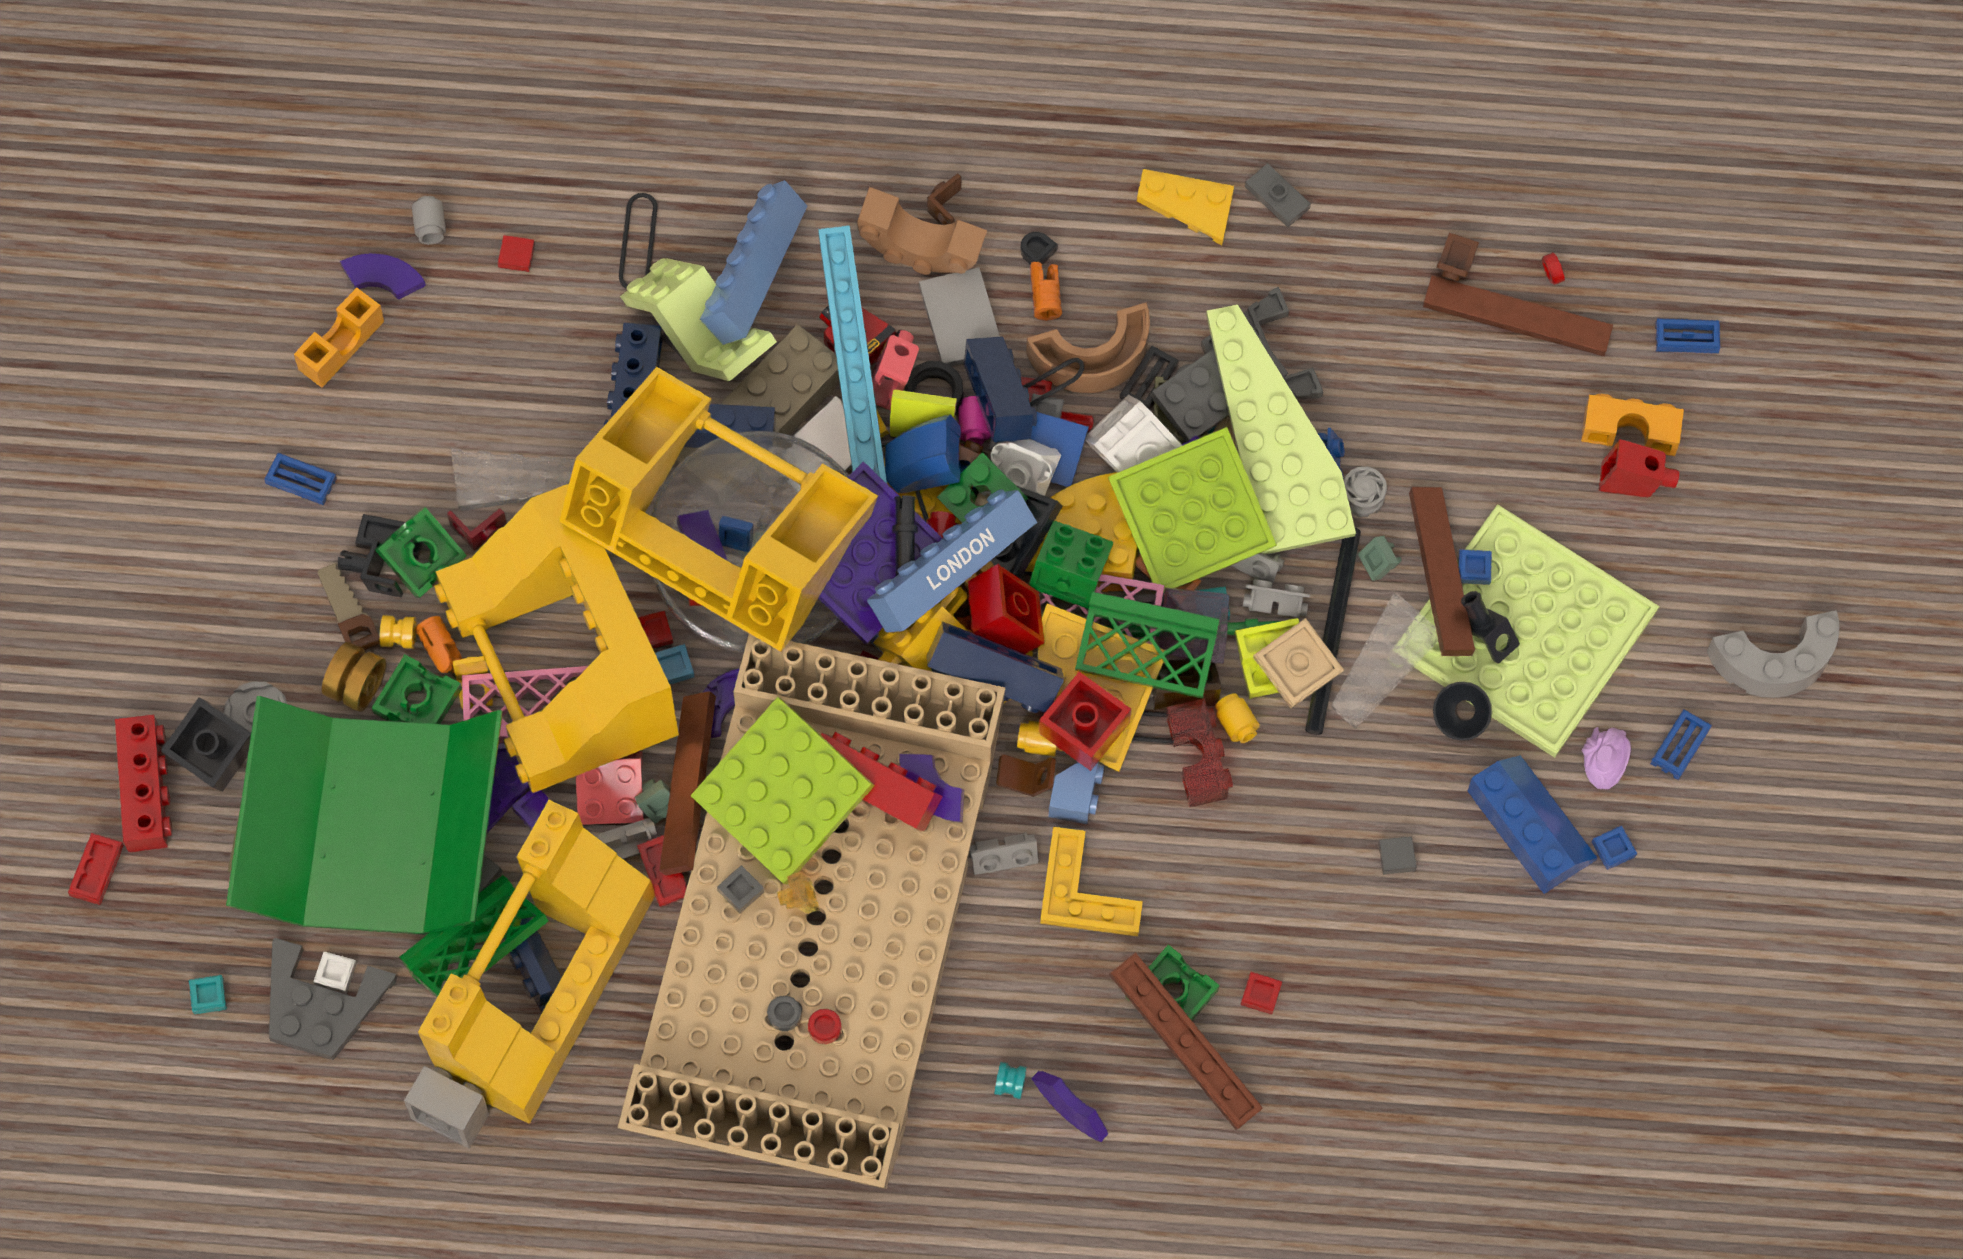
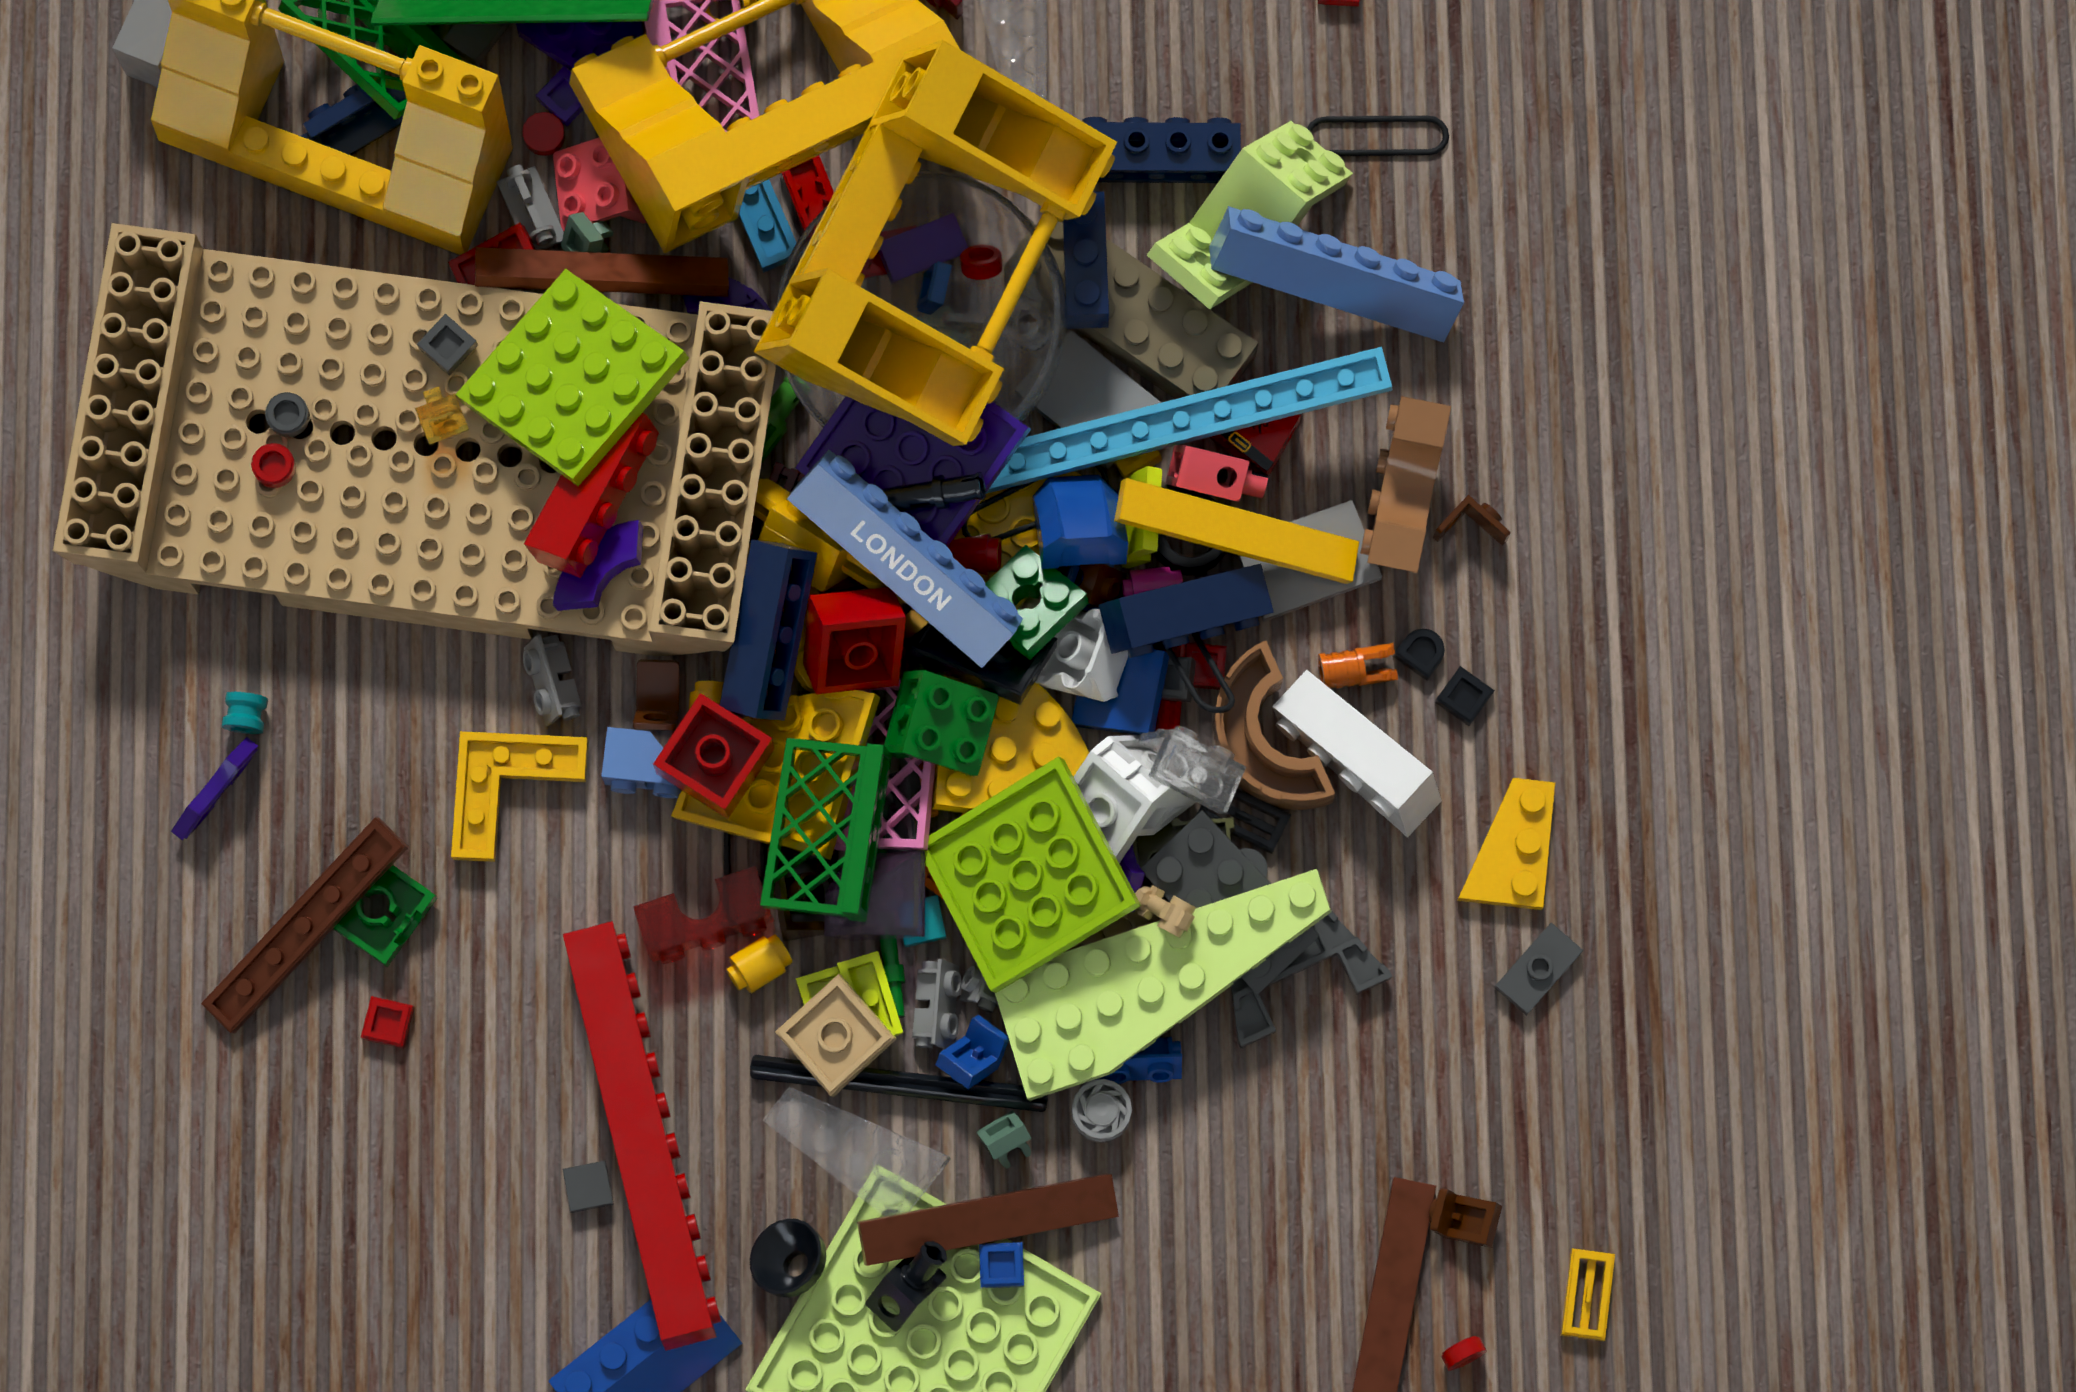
camera: 85 degrees right, 10 degrees up
(719, 499) = (981, 262): none -> red tile
(943, 347) = (1236, 531): none -> yellow tile
(1072, 223) = (1464, 696): none -> black tile
(1115, 286) = (1358, 752): none -> white wedge
(1124, 387) = (1194, 768): none -> clear bracket
(1234, 408) = (1174, 916): none -> tan bar
(1316, 570) = (975, 1054): none -> blue bracket
(1367, 801) = (640, 1137): none -> red brick
(1513, 193) = (1583, 1331): none -> yellow tile

